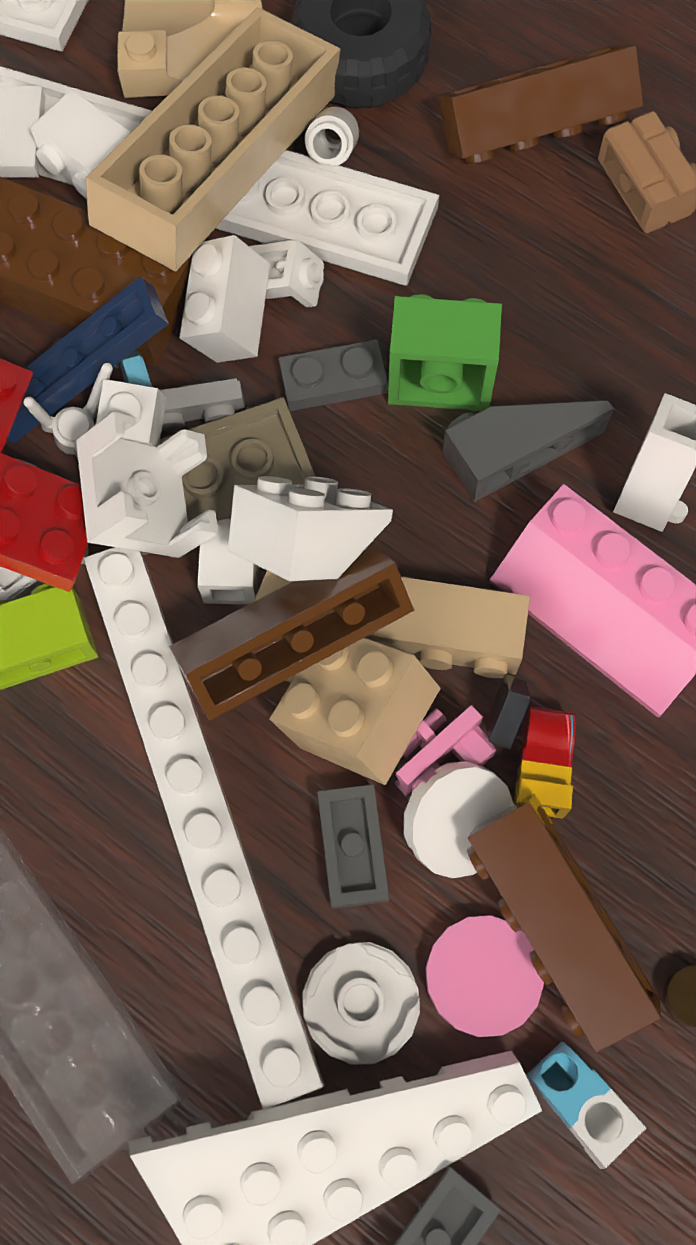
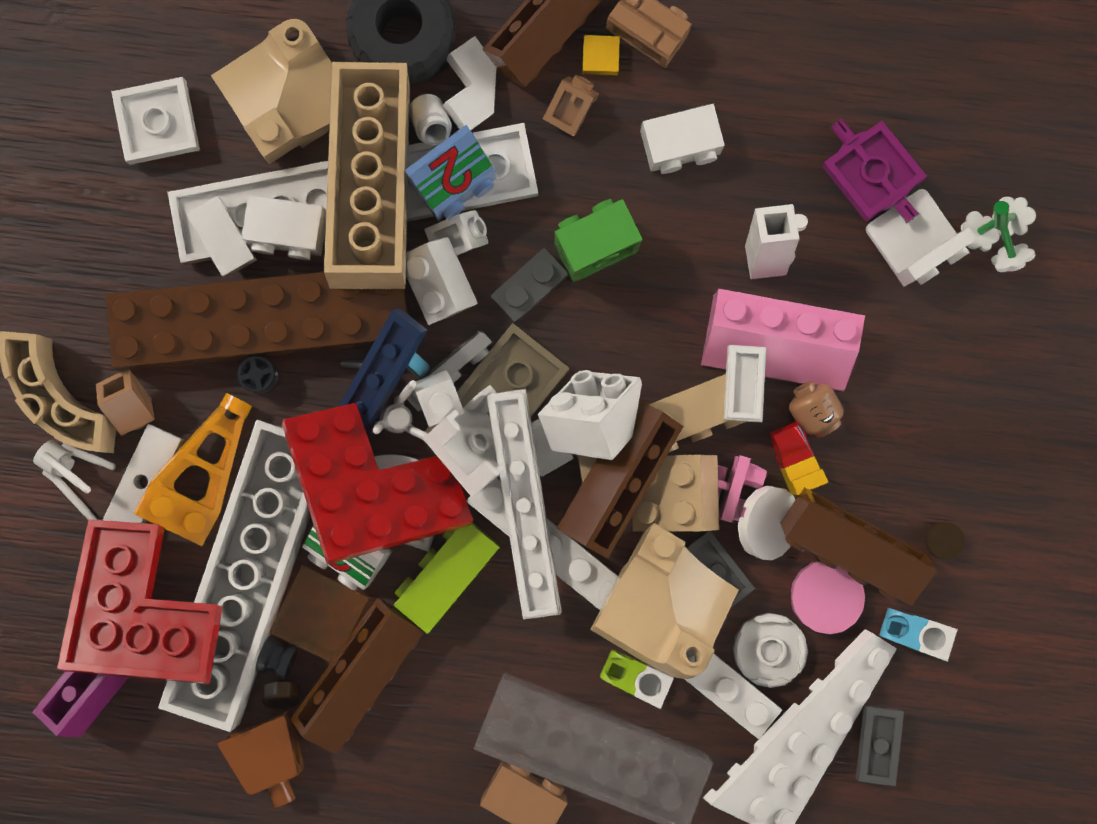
camera: 35 degrees left, 15 degrees up
(147, 596) = (524, 504): none -> white tile
(157, 929) = (636, 678): none -> leg
(247, 833) = (666, 606): none -> tan slope
(315, 181) = (452, 174): none -> slope
(398, 145) = (479, 76): none -> white tile
(506, 206) = (571, 104): none -> medium nougat bracket
(507, 711) = (760, 444): black tile -> none
(517, 439) = (666, 271): dark grey slope -> none
(529, 615) = (744, 383): none -> white tile
(574, 179) = (601, 55): none -> yellow tile
(609, 711) = (816, 408): none -> medium nougat head
(620, 307) = (682, 139): none -> white brick

